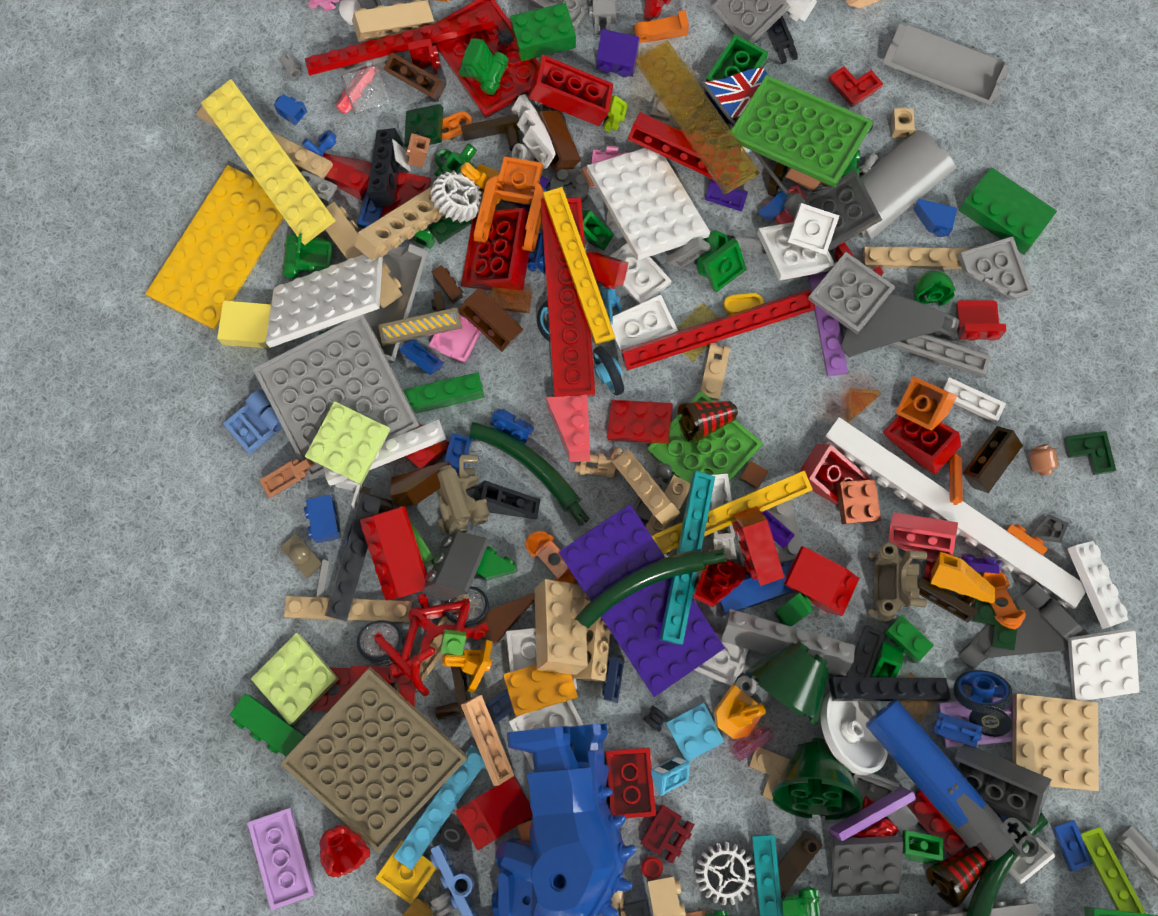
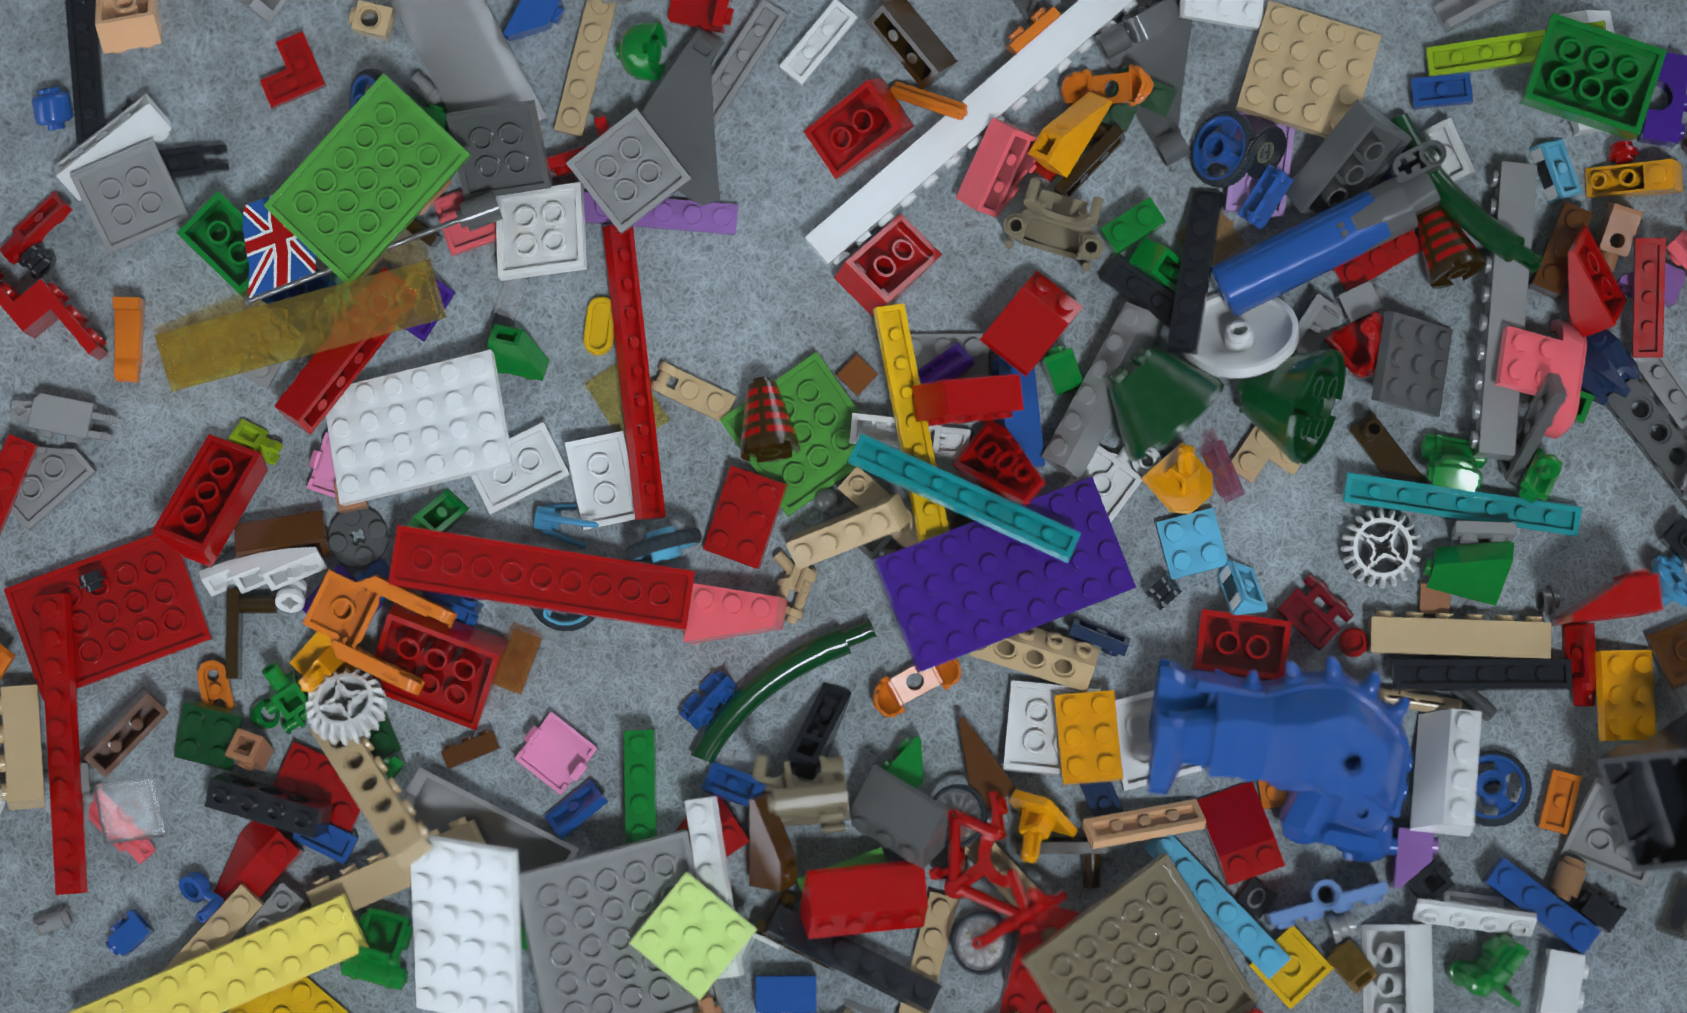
camera: 75 degrees left, 10 degrees up
(400, 155) = (252, 778): white sticker -> none
(419, 326) = (536, 801): tile -> none
(424, 54) = (90, 711): red bracket -> none
(438, 302) = (499, 768): dark brown plate -> none
(453, 642) = (1008, 842): bright green plate -> none
(483, 66) = (140, 623): green piece -> none
(490, 319) = (546, 696): reddish brown brick -> none
(543, 31) = (99, 520): green brick -> none
(559, 637) = (1017, 692): tan brick -> none
(578, 266) = (503, 551): yellow plate -> none
(607, 269) = (507, 513): red brick -> none
(617, 53) = (162, 416): dark purple slope -> none
(645, 576) = (981, 559): dark green animal -> none
(689, 252) = (510, 386): light grey plate -> none
(724, 265) = (540, 340): green plate -> none
(774, 207) = (461, 242): blue sticker -> none
(813, 228) = (522, 201): white plate -> none
(858, 400) = (785, 203): clear orange slope -> none
(858, 501) = (929, 242): plate -> none
(872, 814) = (1349, 339): medium lavender tile -> none
(922, 847) = (1403, 286): green slope -> none
(925, 403) = (812, 111): orange slope -> none
(988, 564) = (1056, 98): dark purple plate -> none

